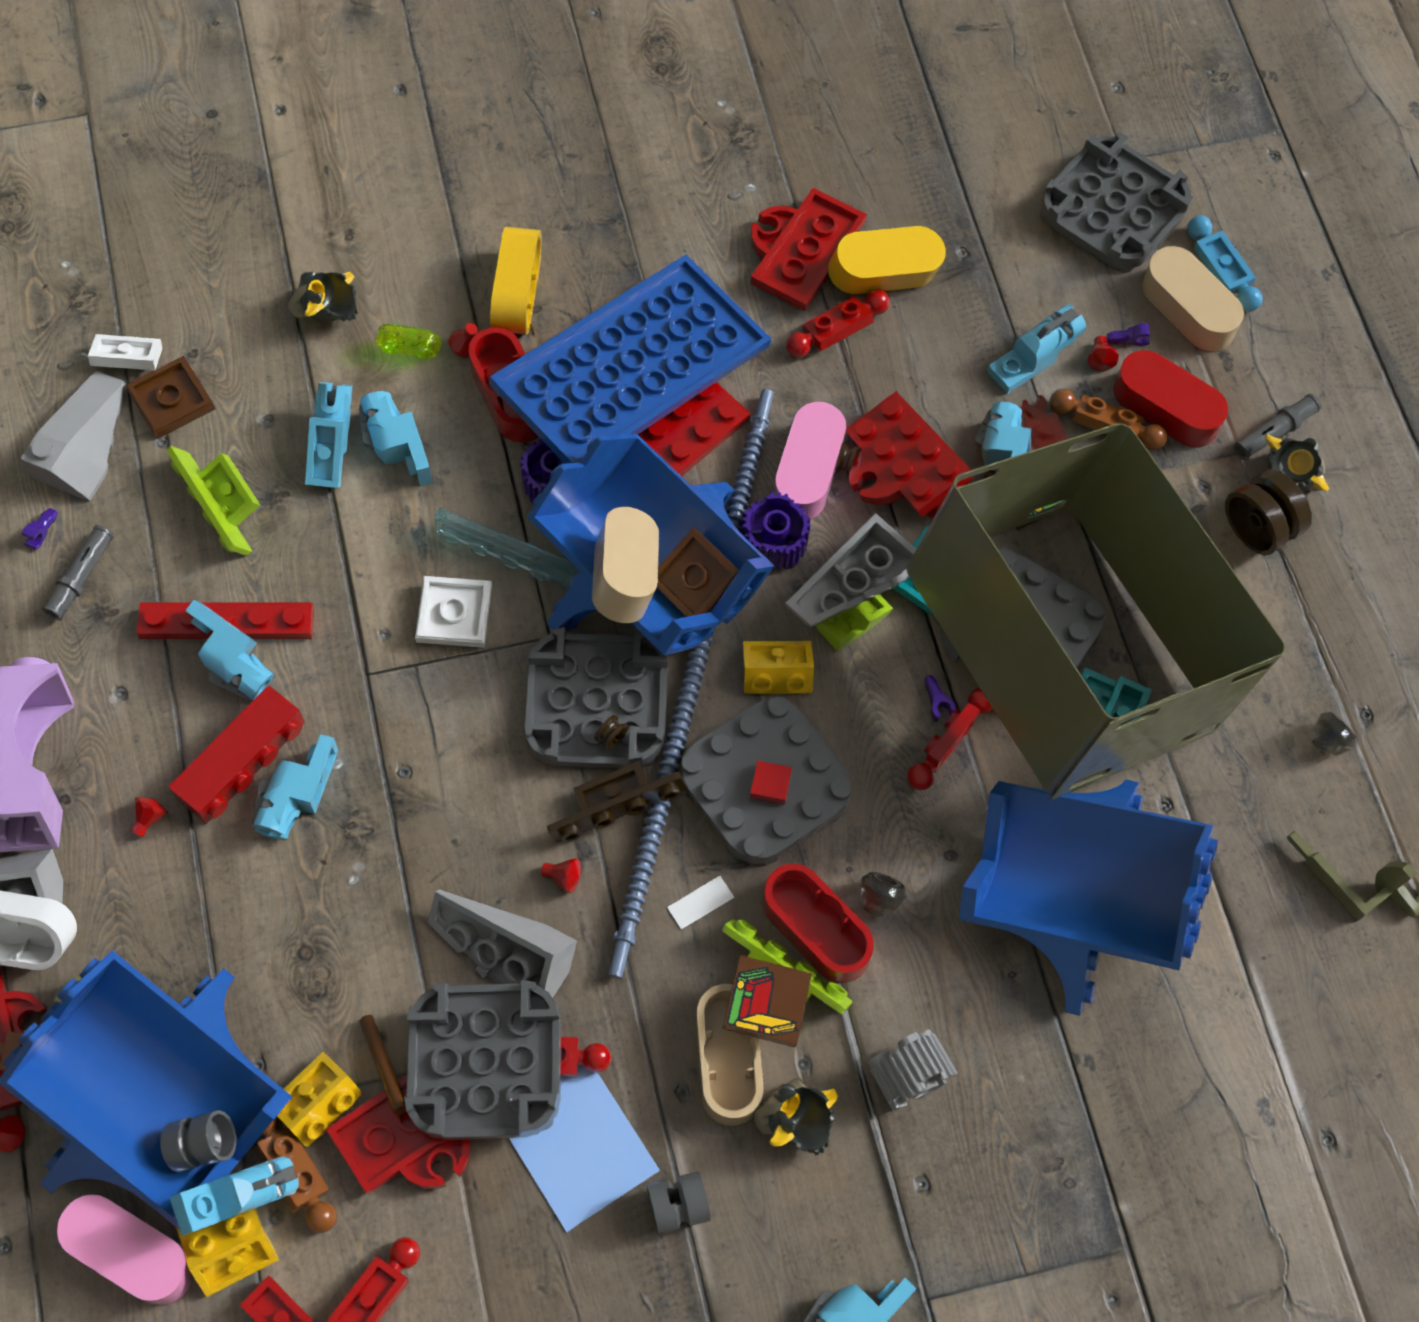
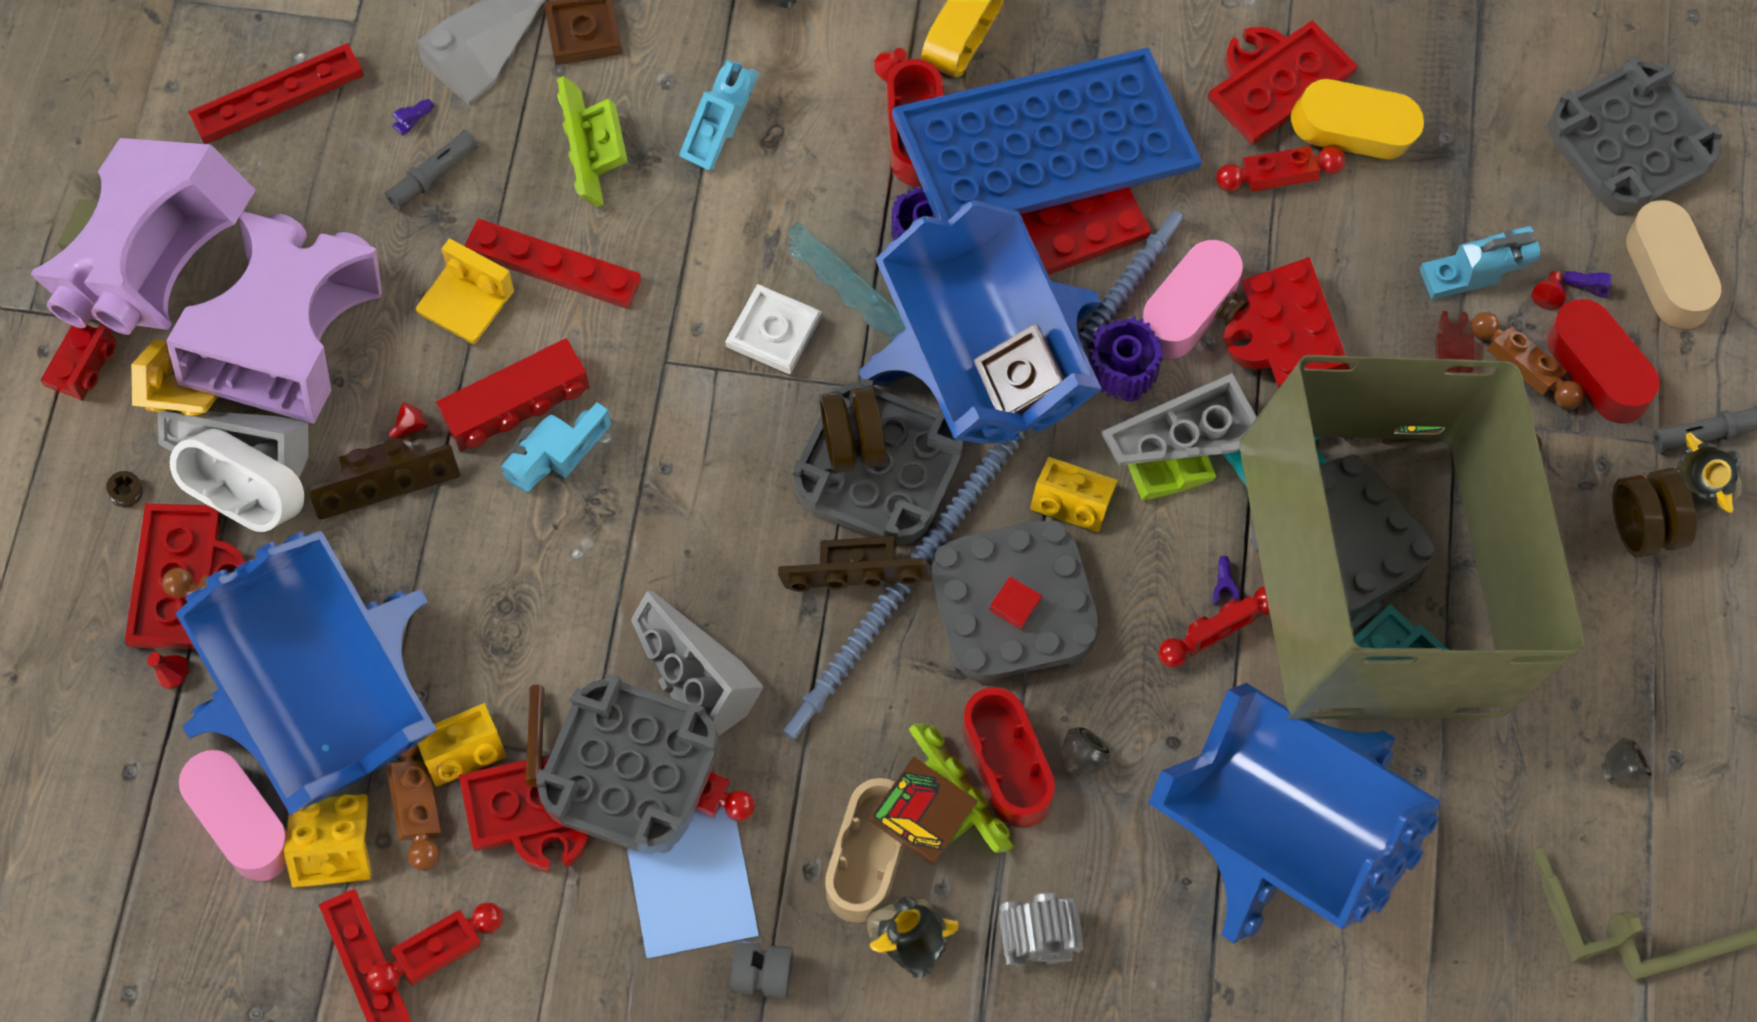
camera: 25 degrees right, 0 degrees up
(140, 872) = (382, 474): none -> dark brown bracket
(156, 675) = (466, 293): none -> yellow bracket
(198, 1141) = (335, 738): dark grey wheel -> none
(228, 655) = (541, 295): medium azure plate -> none
(234, 1194) = (349, 798): medium azure plate -> none
(393, 434) = (782, 135): medium azure plate -> none
(408, 340) = (835, 46): clear neon green plate -> none
(564, 874) = (780, 621): red rock -> none
(566, 677) = (858, 428): none -> dark brown wheel
(611, 732) = (877, 499): dark brown bush -> none
(625, 565) = (951, 337): tan plant -> none
(700, 902) = (902, 696): white sticker -> none
(1003, 434) = (1405, 334): medium azure plate -> none
(1224, 262) = (1727, 239): dark azure plate -> none

